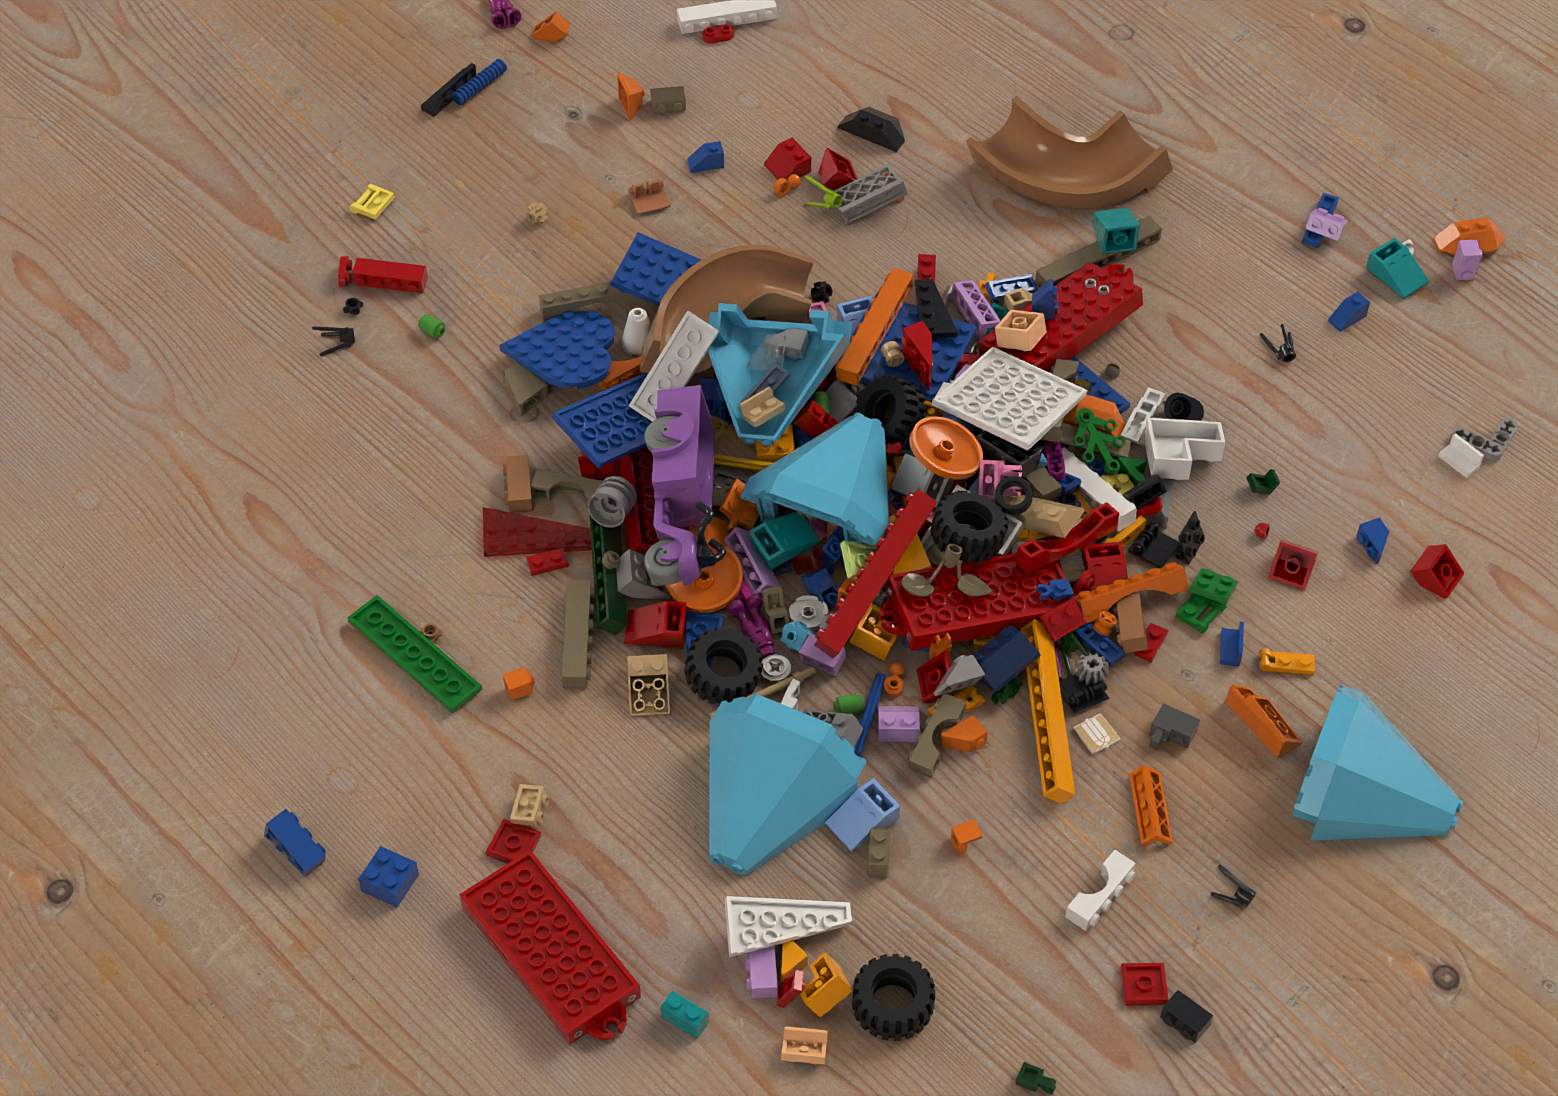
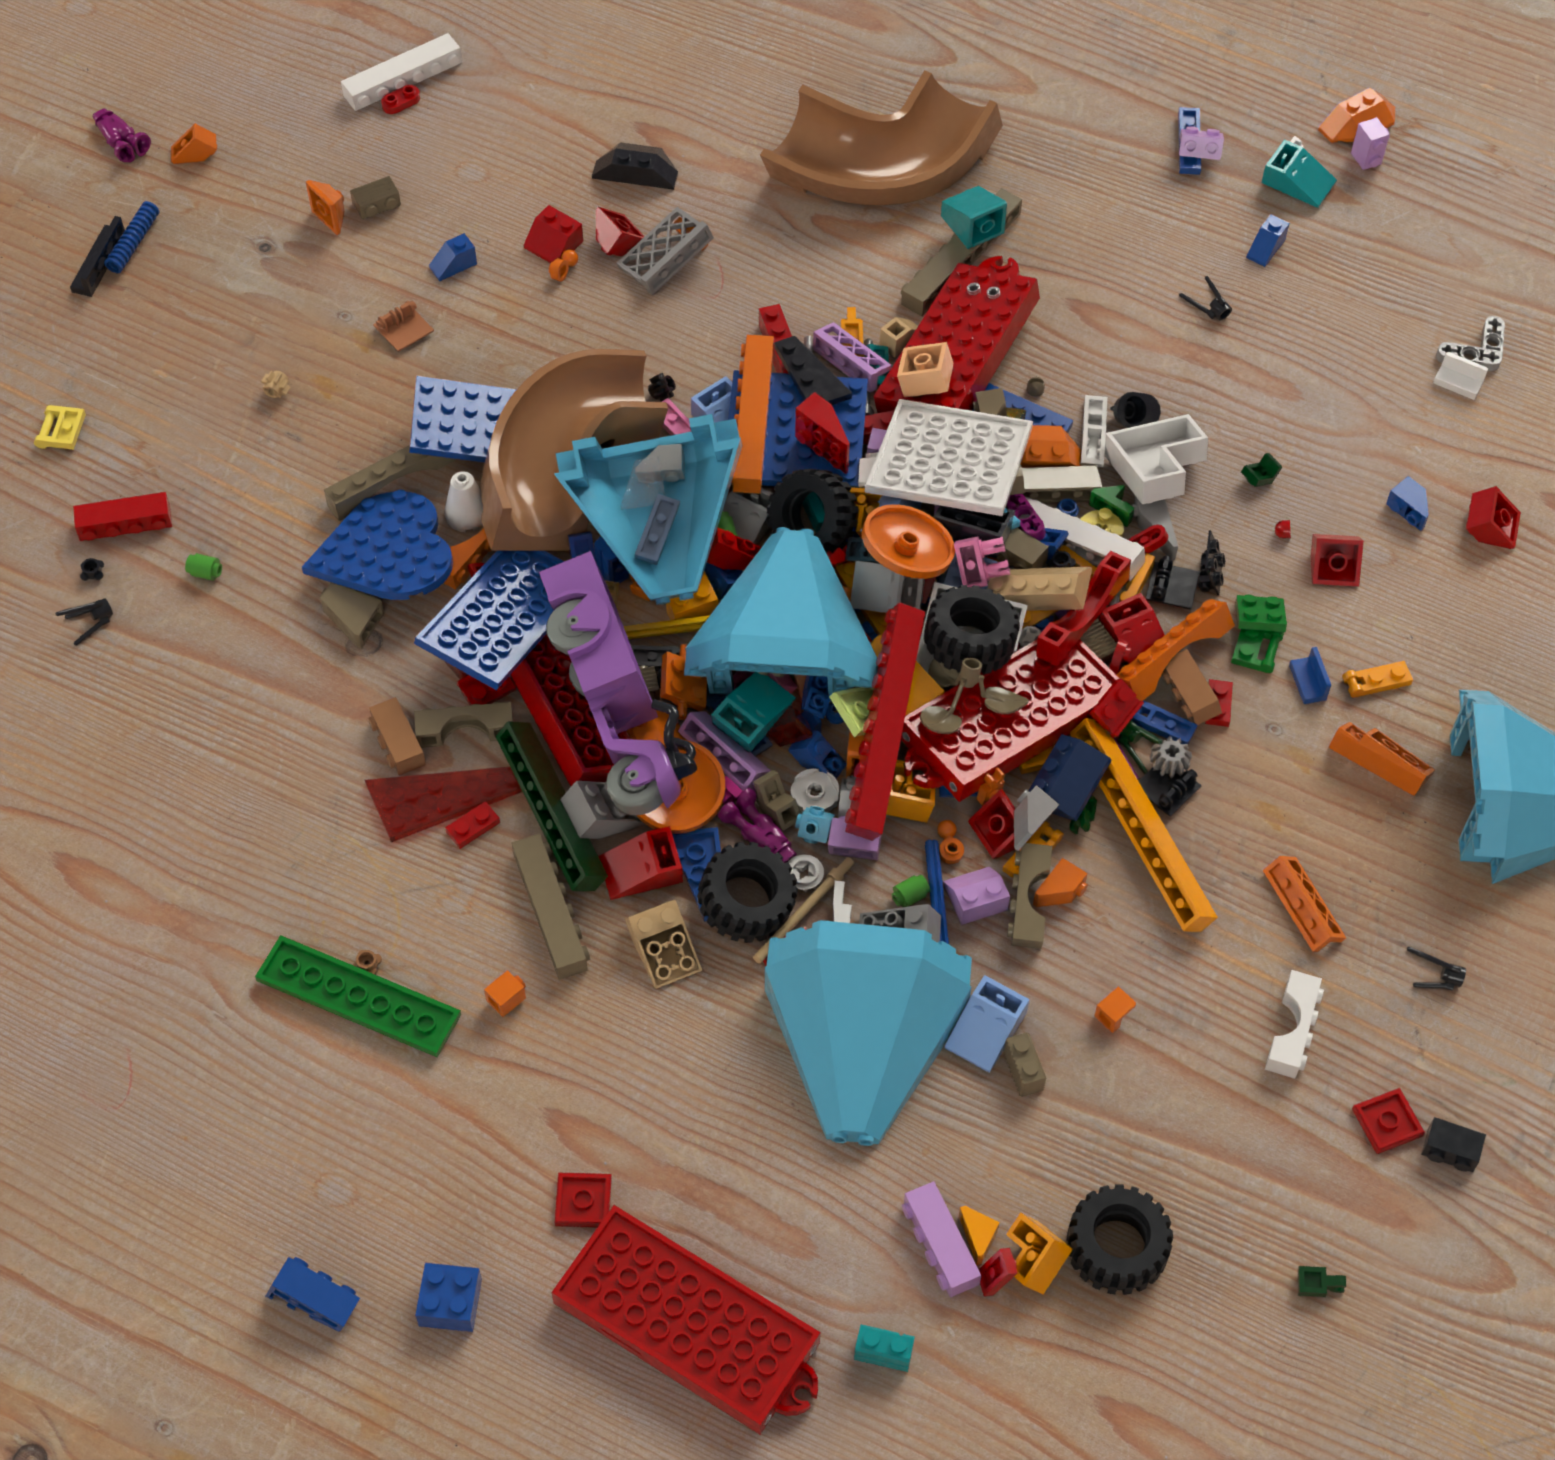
camera: 20 degrees left, 5 degrees up
(344, 276) = (61, 520): red plate -> none
(529, 806) = (584, 1146): tan bracket -> none
(611, 560) = (557, 801): dark tan plate -> none
(612, 501) = (531, 727): light grey wheel -> none
(675, 362) = (542, 535): white plate -> none
(761, 407) = (665, 555): tan bracket -> none
(770, 921) = (940, 1197): white wing -> none
(804, 1045) = (1040, 1337): light nougat bracket -> none
(831, 198) = (625, 267): lime plant -> none
(892, 352) = (786, 439): tan wheel -> none
(999, 287) = (871, 322): plate -> none
(1014, 481) = (1009, 558): black tyre -> none
(1044, 301) = (936, 325): blue slope -> none
(1058, 589) = (1096, 673): blue plate -> none
(1096, 734) = (1205, 833): piece -> none
(1097, 437) = (1061, 475): green plant -> none
(1105, 623) = (1162, 697): orange wheel -> none
(1145, 491) = (1144, 522): black brick -> none
(1173, 726) = (1289, 797): dark grey hinge -> none

